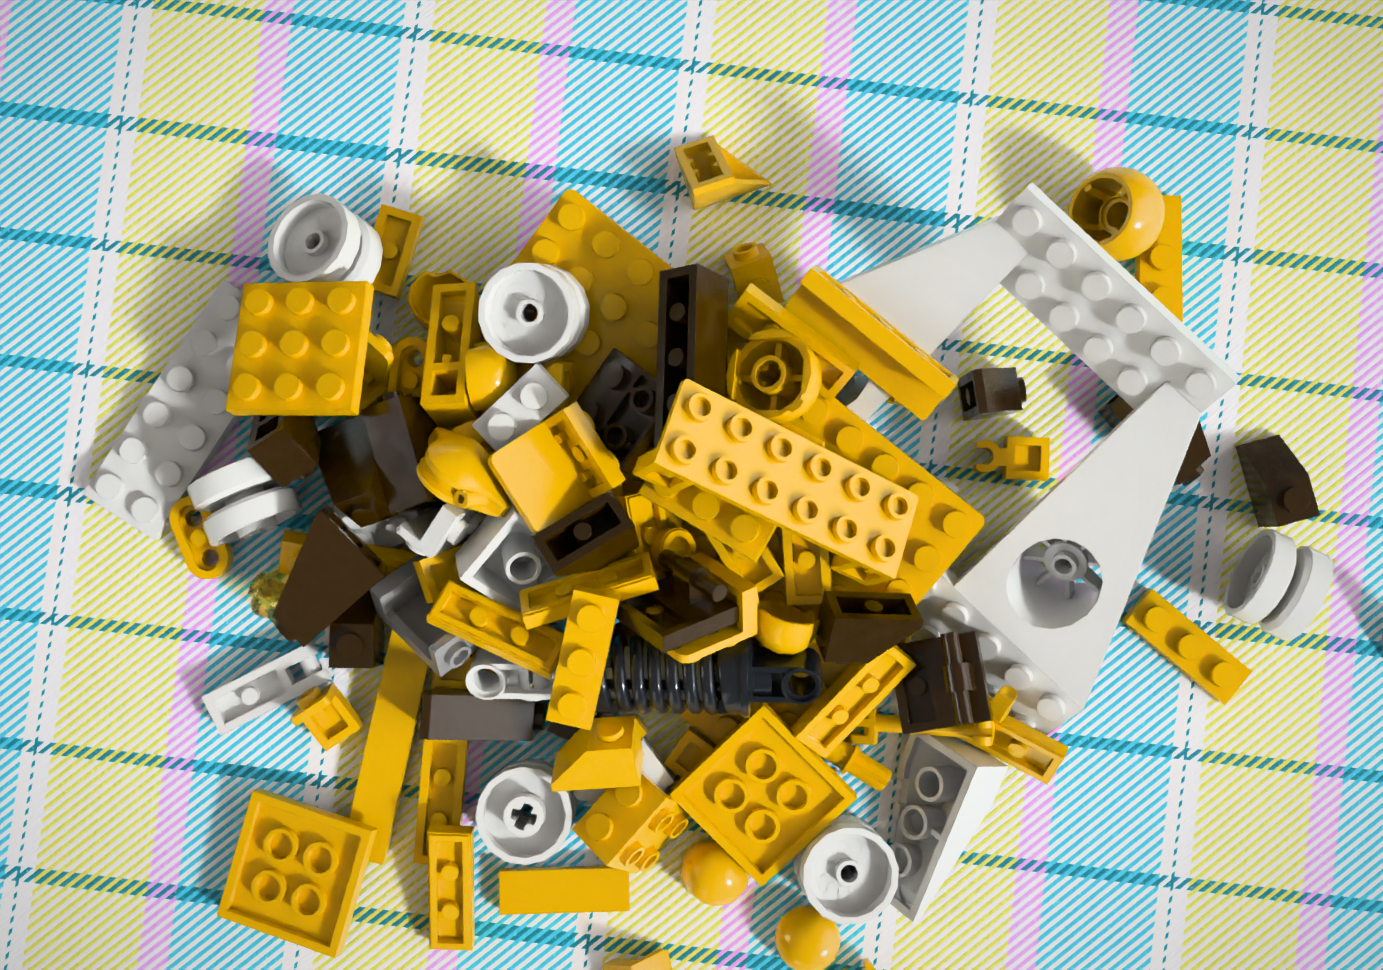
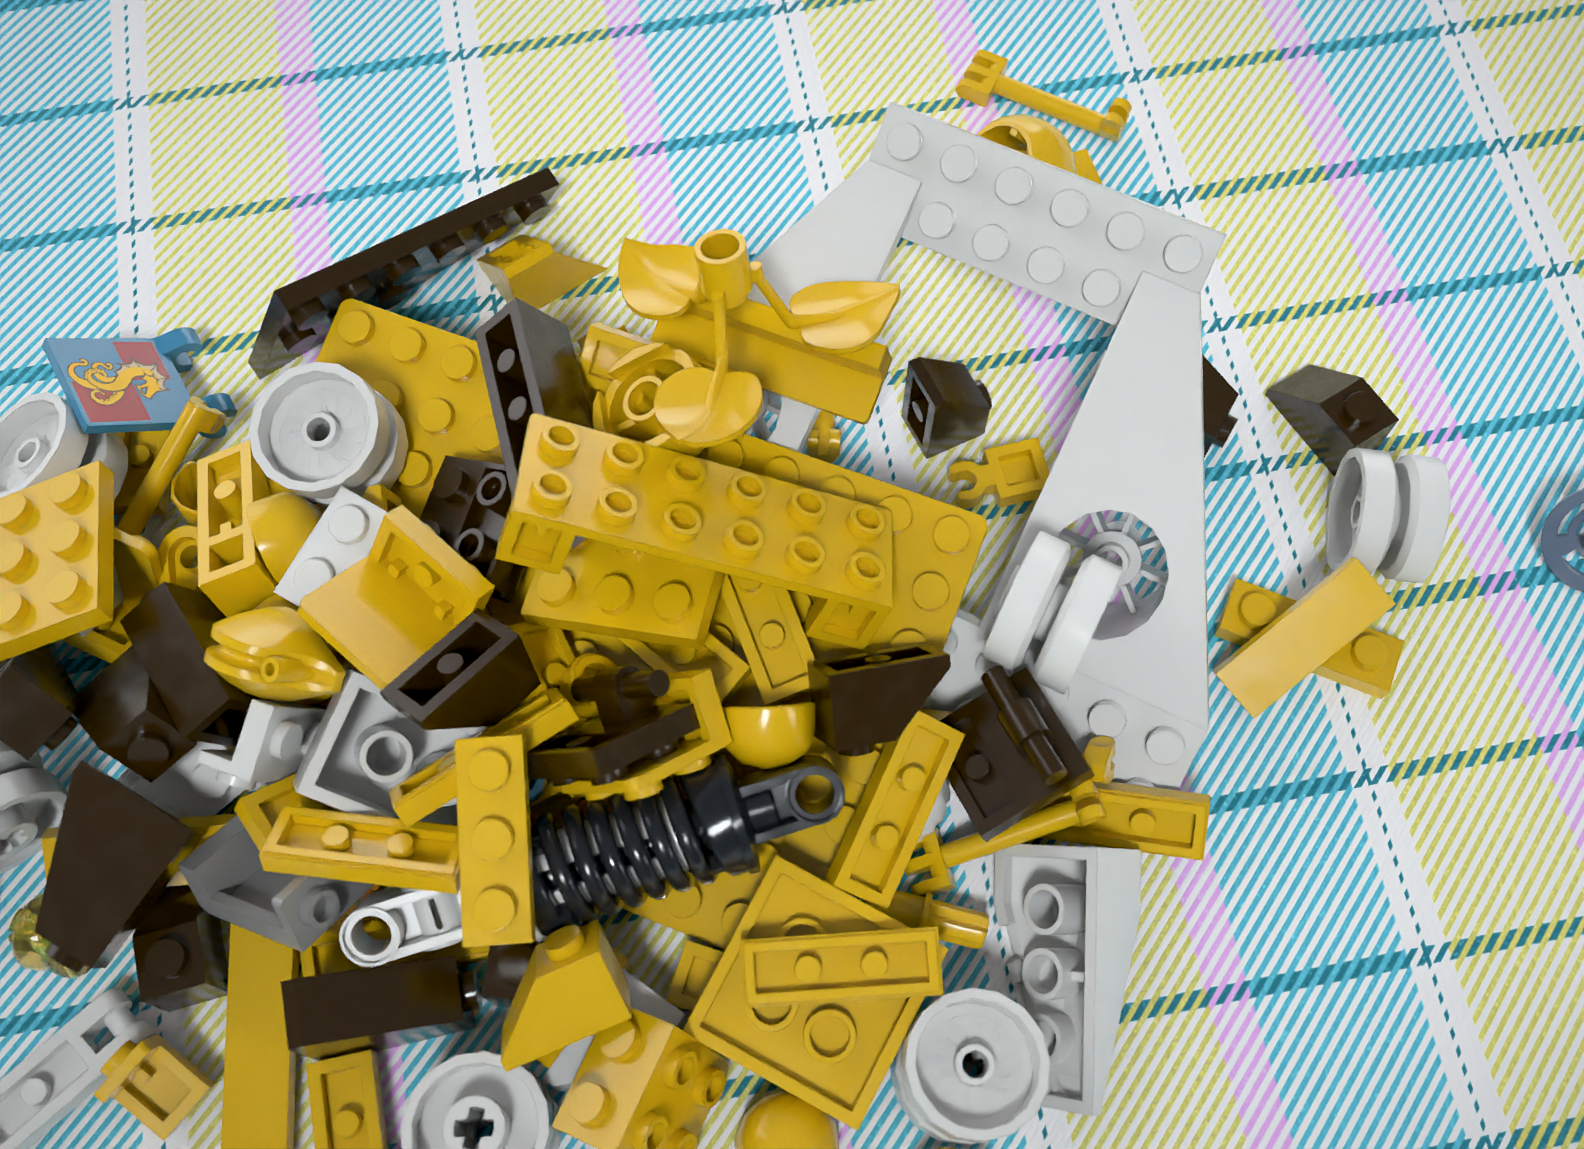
camera: 15 degrees left, 20 degrees down
(393, 199) = (129, 381): none -> flag
(436, 249) = (193, 418): none -> yellow hinge
(614, 157) = (385, 273): none -> dark brown wing
(783, 790) = (841, 967): none -> yellow tile
(816, 281) = (717, 405): none -> yellow plant
(1005, 612) = (1051, 612): none -> white wheel
(1130, 105) = (988, 77): none -> yellow hinge
(1180, 653) = (1304, 637): none -> yellow tile

